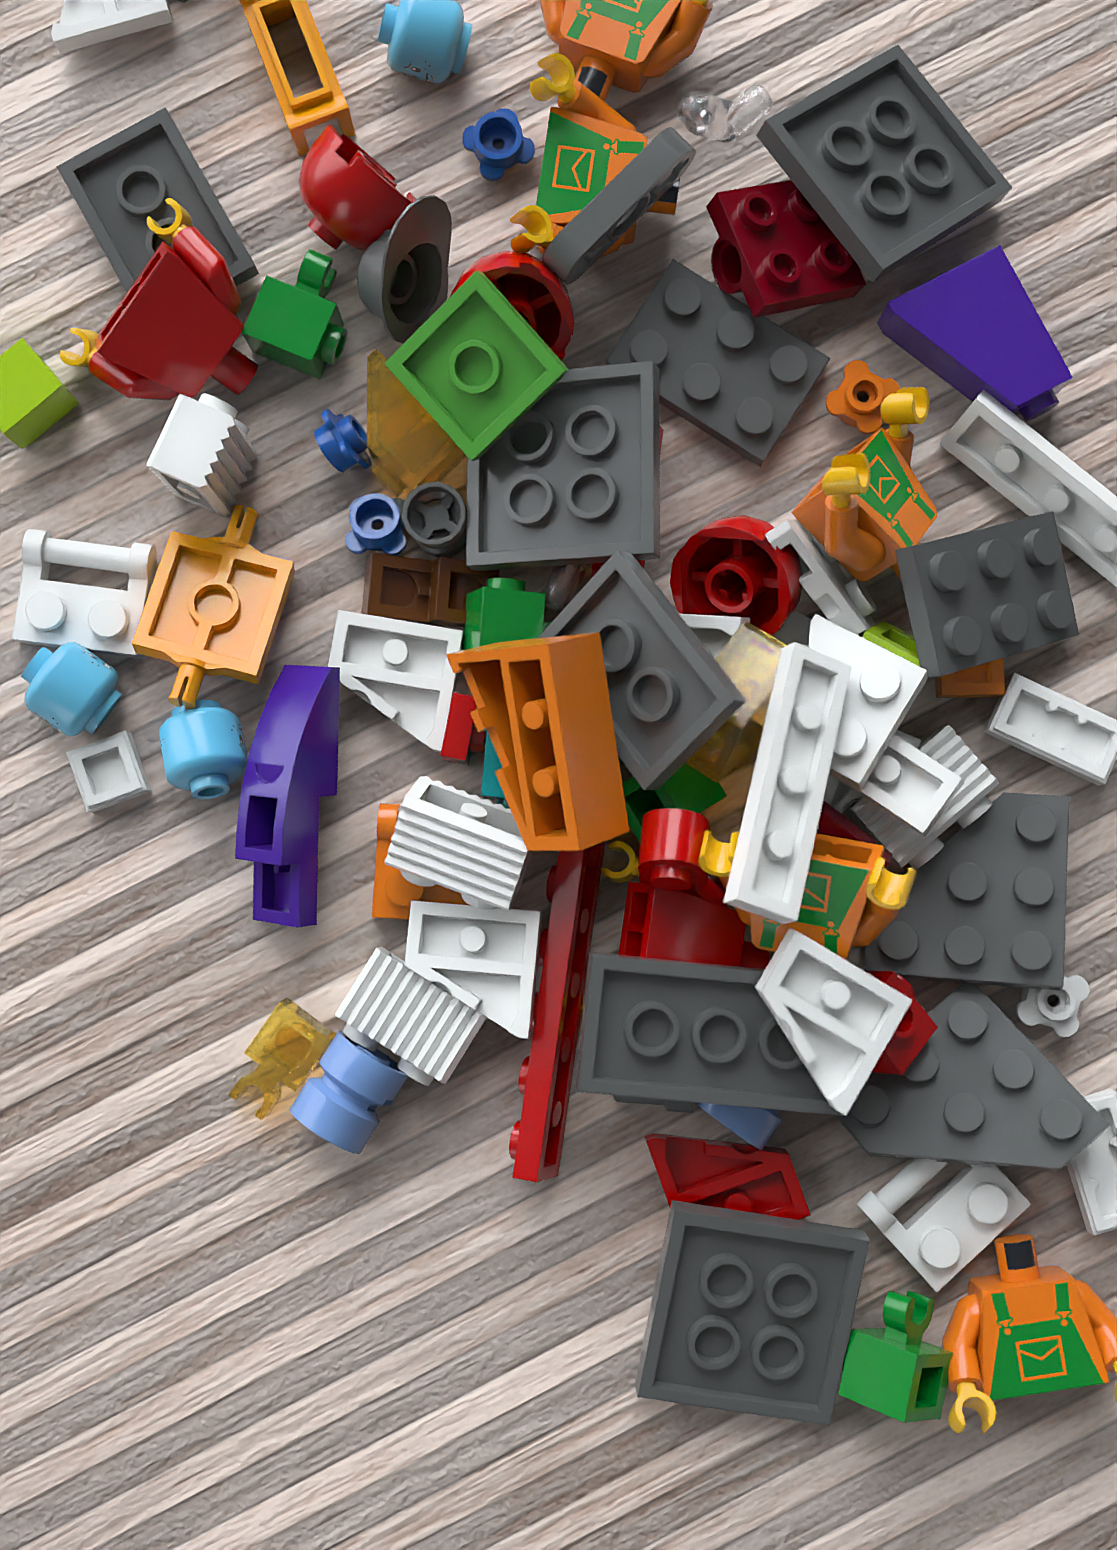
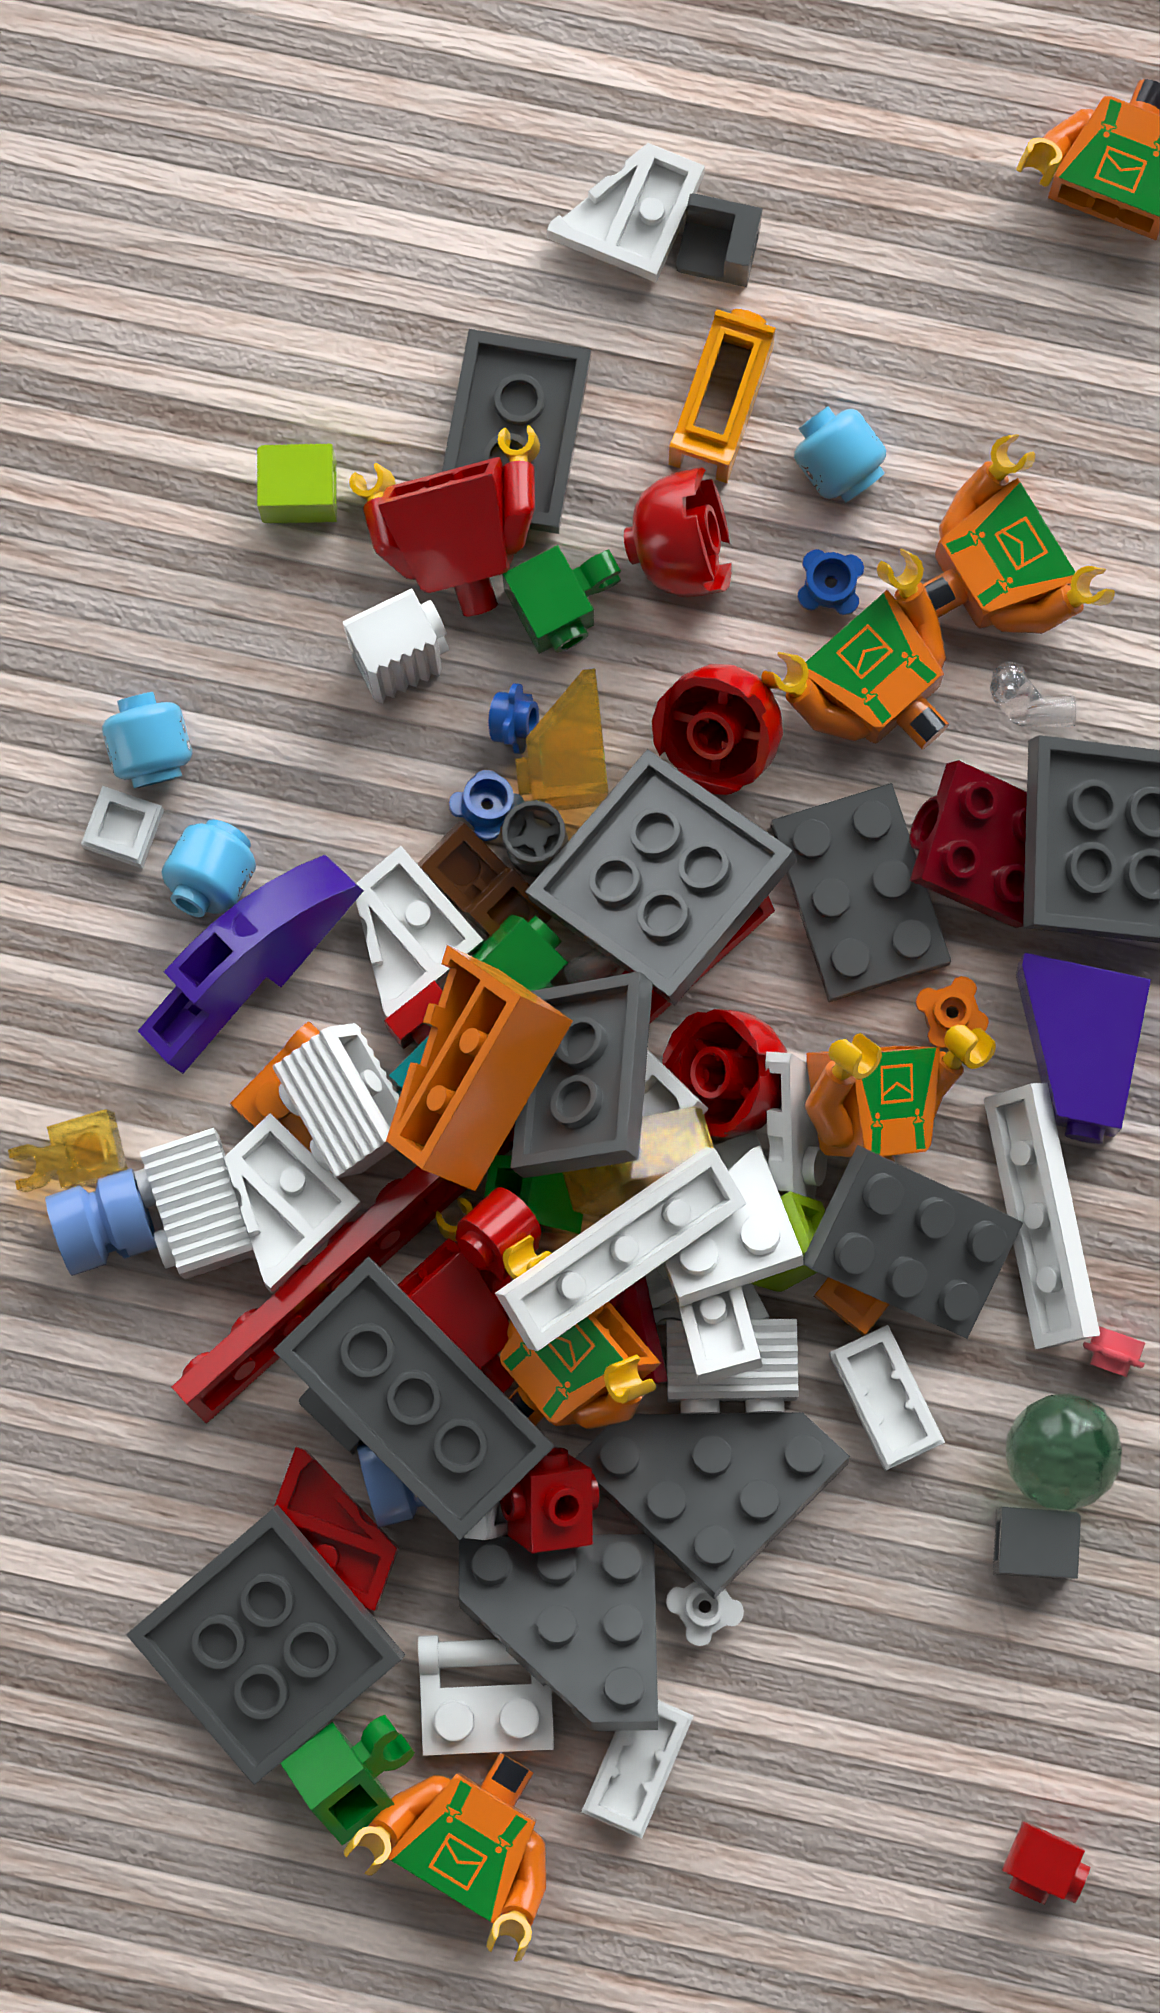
camera: 40 degrees right, 5 degrees down
(89, 615) = (203, 690): white plate -> none
(214, 607) = (308, 766): light orange plate -> none
(407, 268) = (669, 631): dark grey piece -> none
(476, 366) = (655, 746): bright green plate -> none
(618, 205) = (869, 710): dark grey beam -> none
(830, 1014) = (508, 1447): white wing -> none

